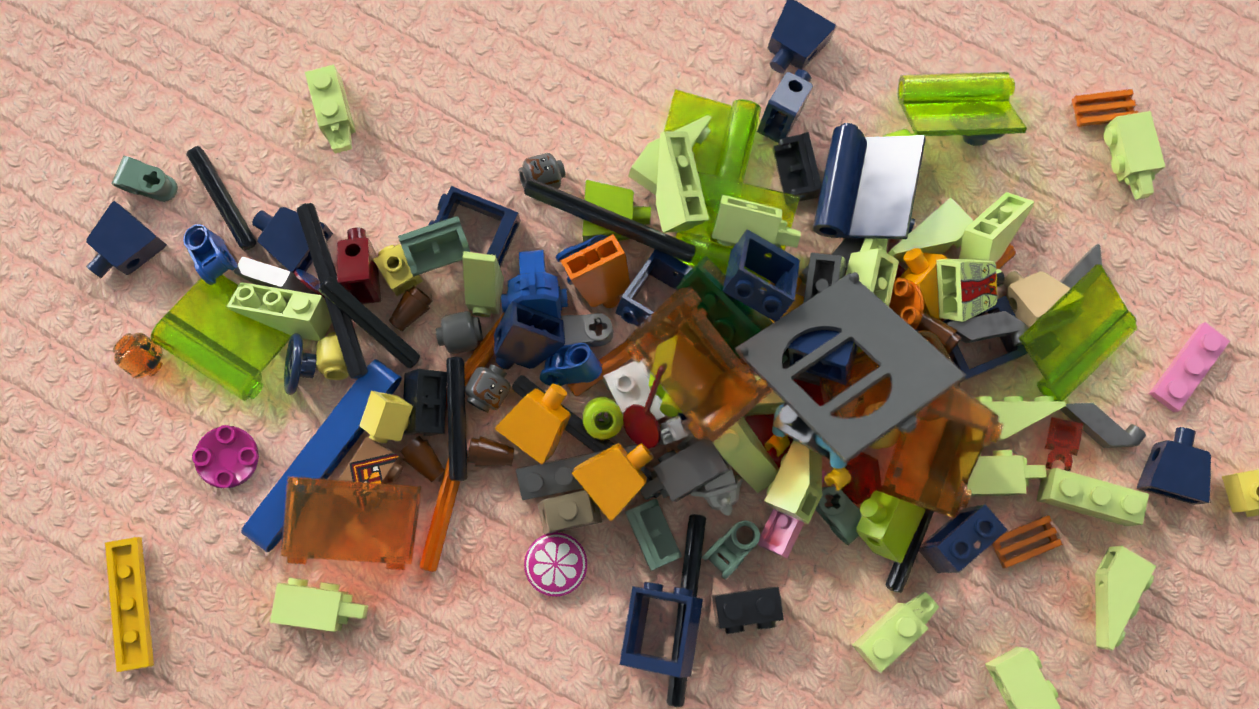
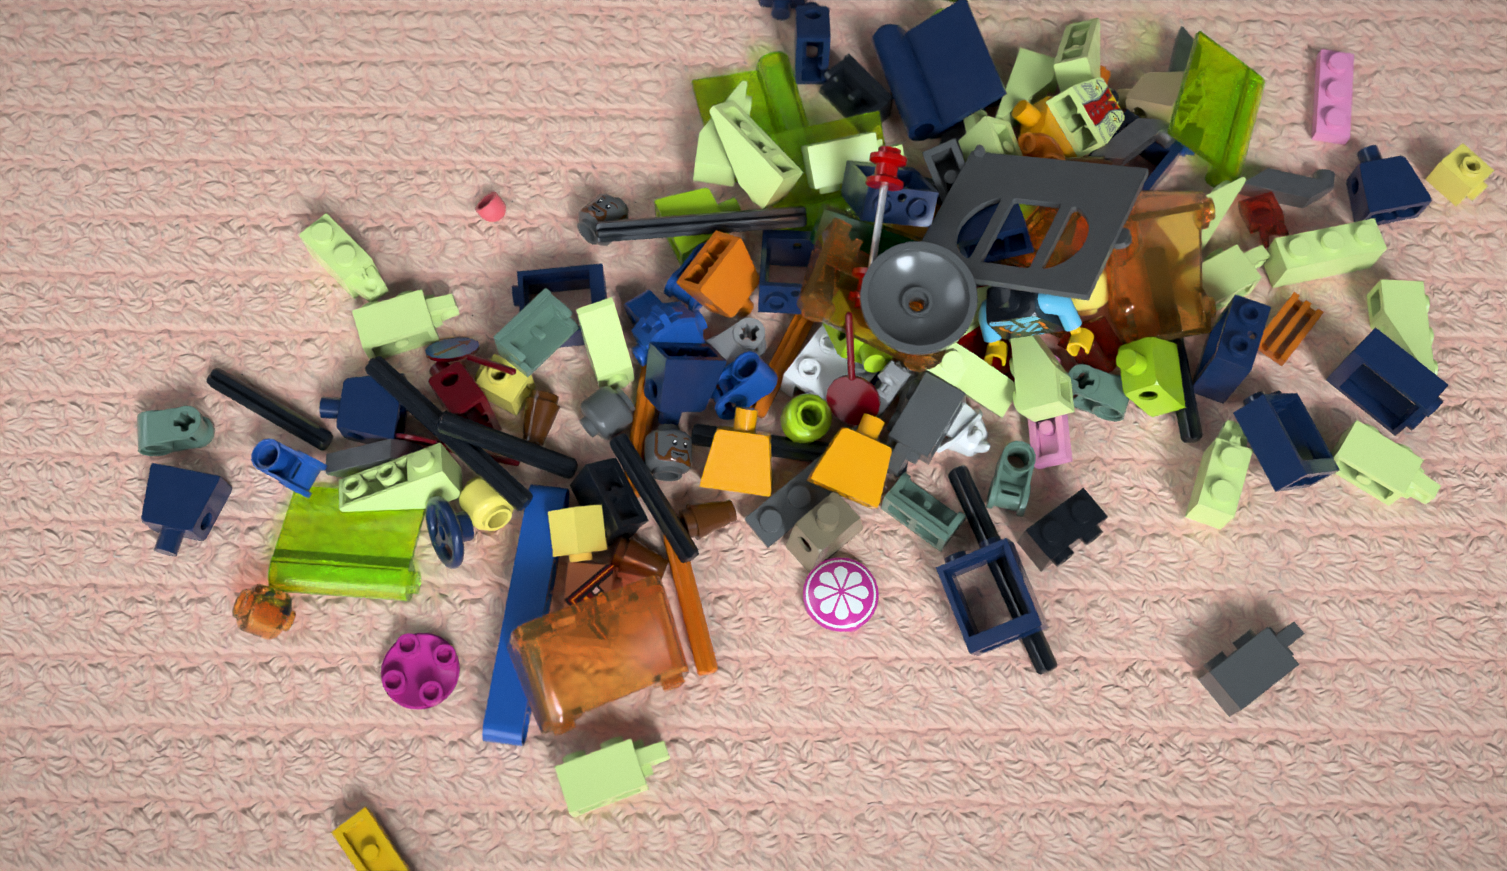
camera: 25 degrees left, 10 degrees down
(348, 179) = (402, 322): none -> yellowish green hinge
(377, 223) = (462, 348): none -> piece
(463, 118) = (491, 207): none -> coral hinge
(690, 355) = (885, 179): none -> red axle
(726, 360) = (922, 275): none -> dark grey dish
(976, 634) = (1285, 440): none -> dark blue window
(1072, 632) = (1376, 395): none -> dark blue window

